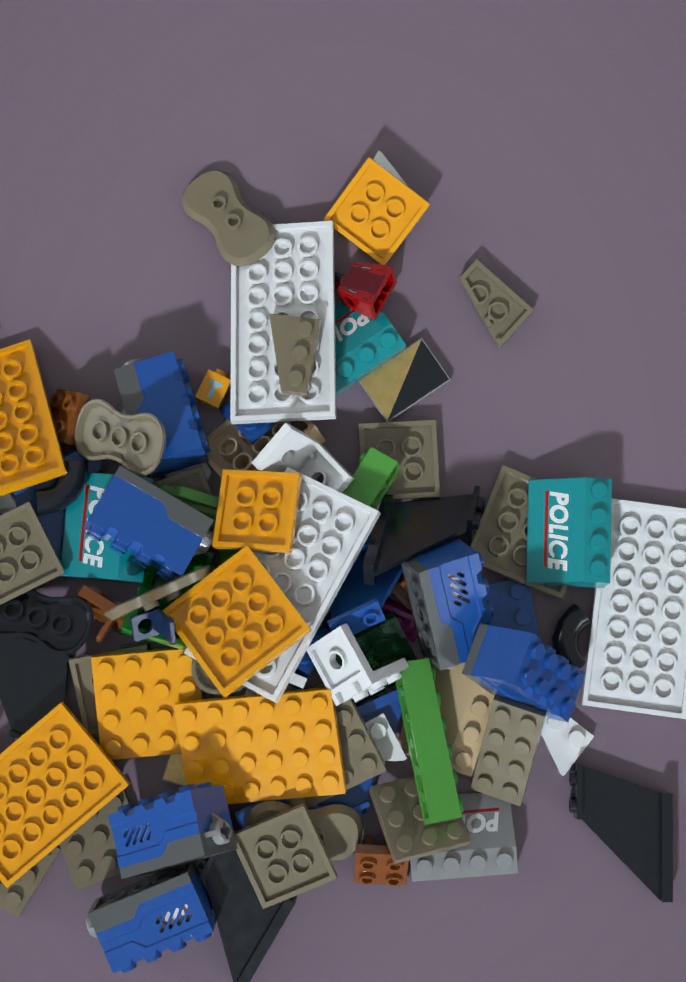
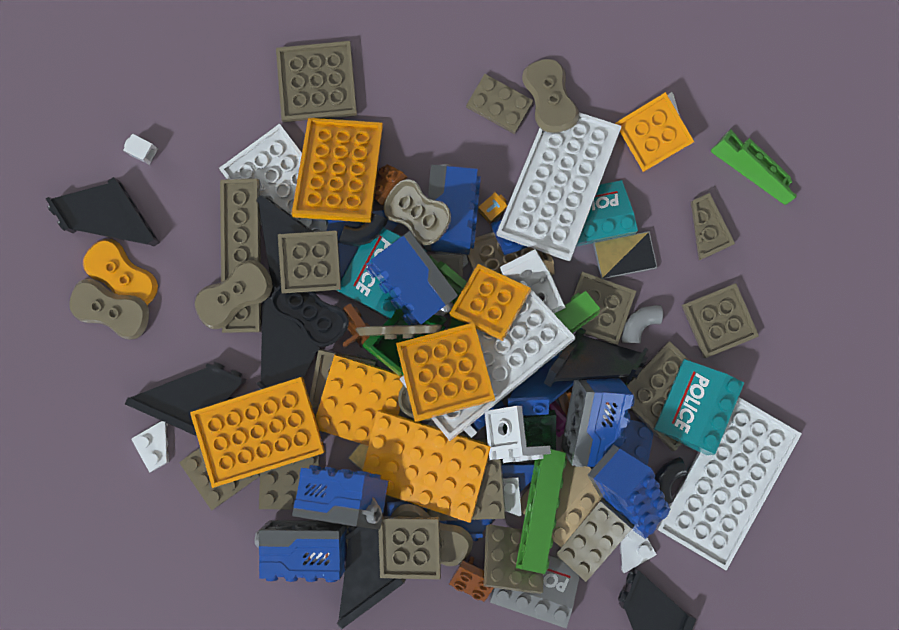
camera: 25 degrees right, 0 degrees up
(161, 624) = (392, 351): dark blue bracket -> none
(168, 253) = (499, 103): none -> dark tan plate
(295, 351) = (561, 203): dark tan wing -> none
(365, 287) = (625, 181): red torso -> none
(455, 455) = (639, 321): none -> light grey cylinder
(520, 201) = (755, 165): none -> bright green wedge
(554, 413) = (720, 320): none -> dark tan plate

